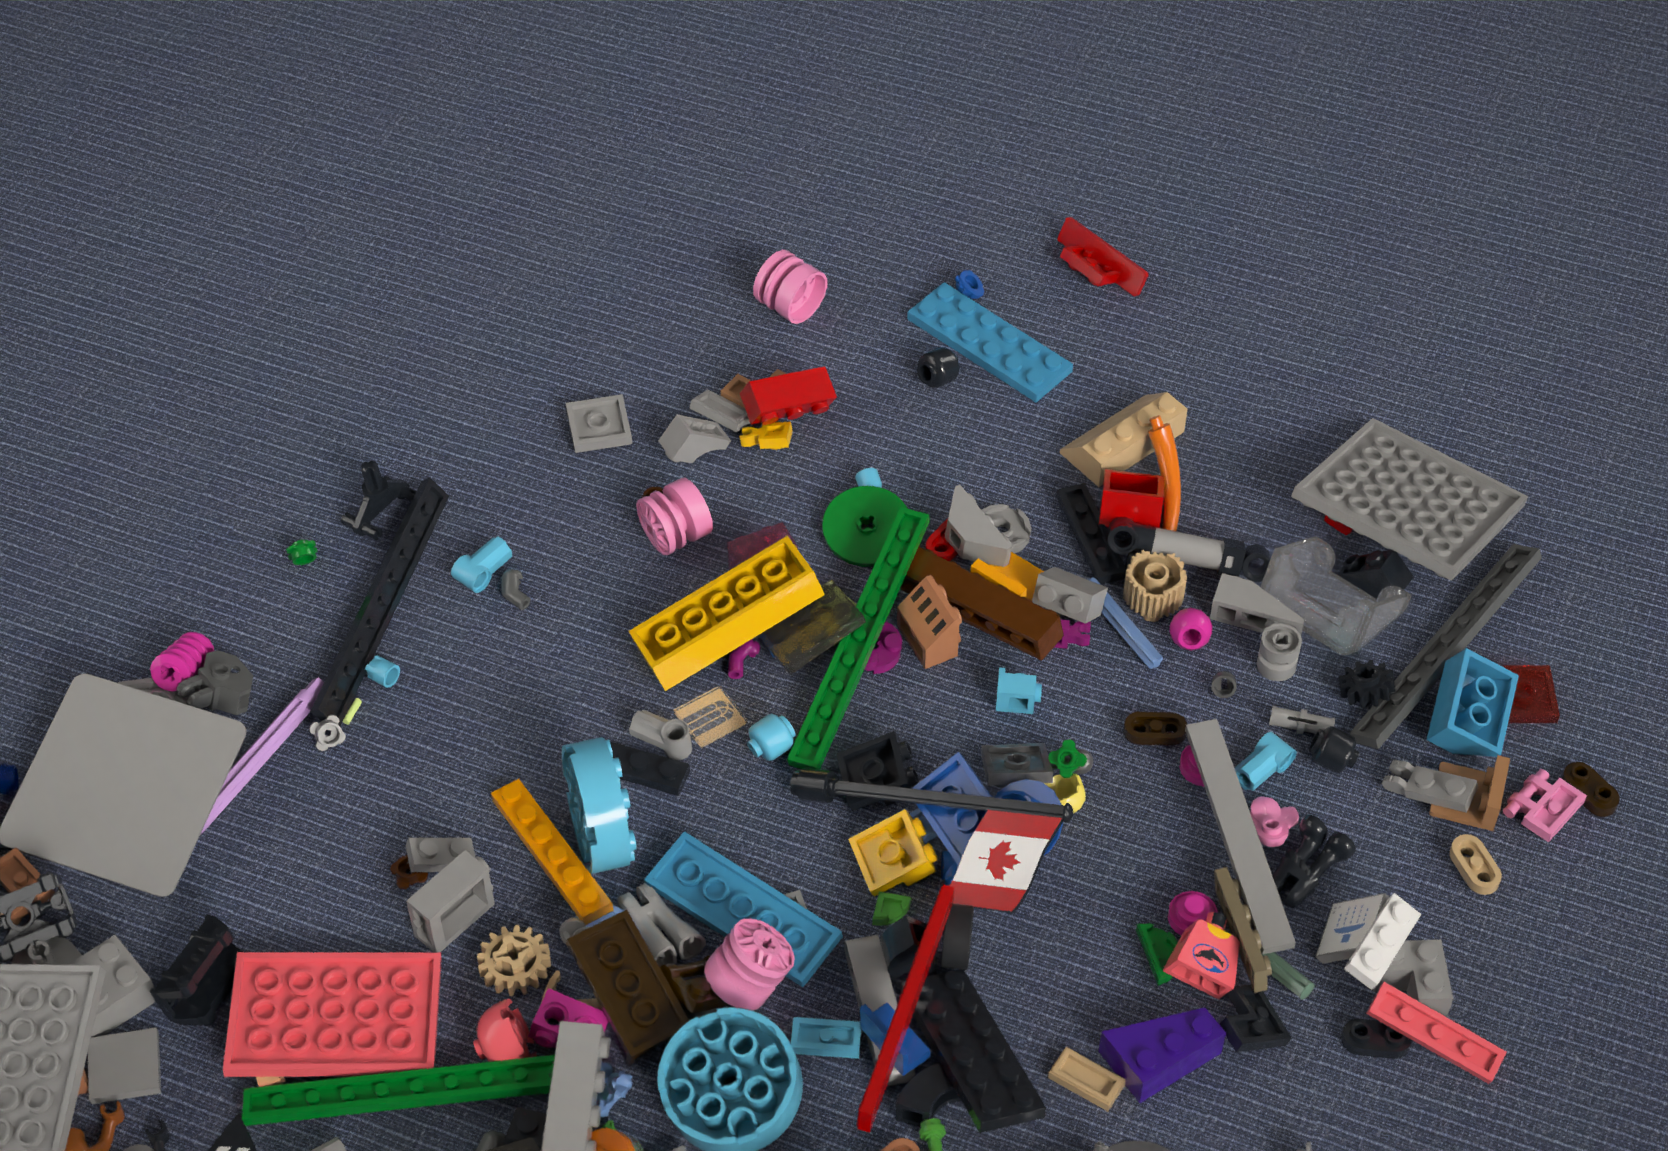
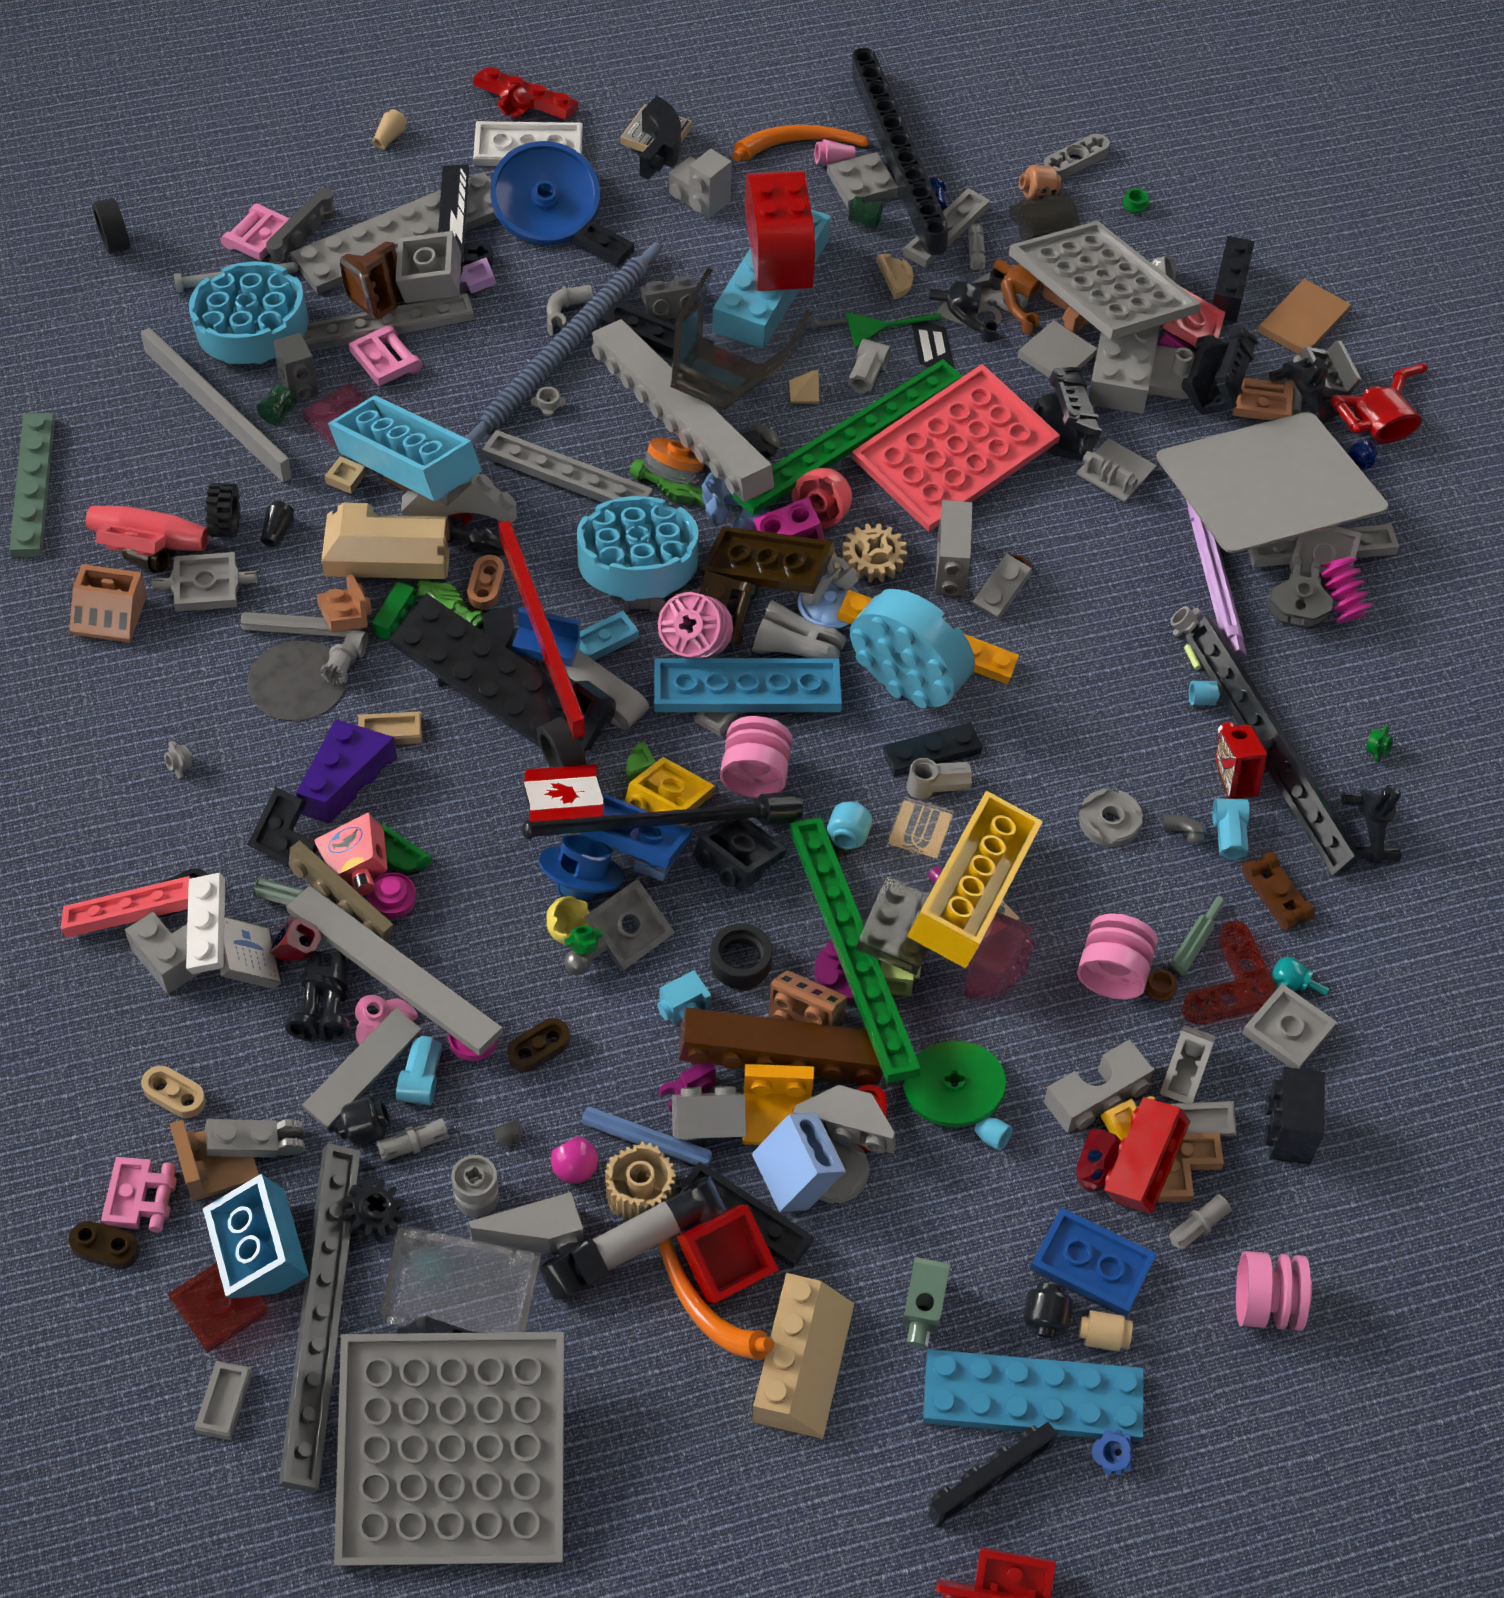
camera: 140 degrees right, 5 degrees up
(223, 898) = (1115, 469): none -> light grey hinge
(422, 595) = (1240, 760): none -> red torso
(500, 509) = (1277, 891): none -> reddish brown plate
(557, 452) = (1295, 976): none -> teal piece
(559, 646) = (1106, 832): none -> light grey tile
(594, 514) = (1195, 939): none -> sand green axle
(601, 468) = (1241, 988): none -> clear red beam
(663, 360) = (1295, 1115): none -> black piece
(749, 457) = (1079, 1103): none -> light grey arch
(787, 360) = (1200, 1222): none -> light grey axle
(800, 823) = (756, 756): none -> bright pink wheel
(816, 428) = (1097, 1159): none -> dark red rock
(880, 378) = (1093, 1261): none -> blue plate
(911, 338) = (1106, 1331): none -> tan brick
(944, 717) = (741, 934): none -> black tyre
(1014, 411) = (928, 1291): none -> sand green torso
(1033, 521) = (798, 1162): none -> light blue piece
(1058, 313) = (979, 1481): none -> black plate
(1307, 912) = (296, 940): none -> dark red rock
(1309, 790) = (361, 1068): none -> light grey tile
(1550, 638) = (223, 1400): none -> light grey tile

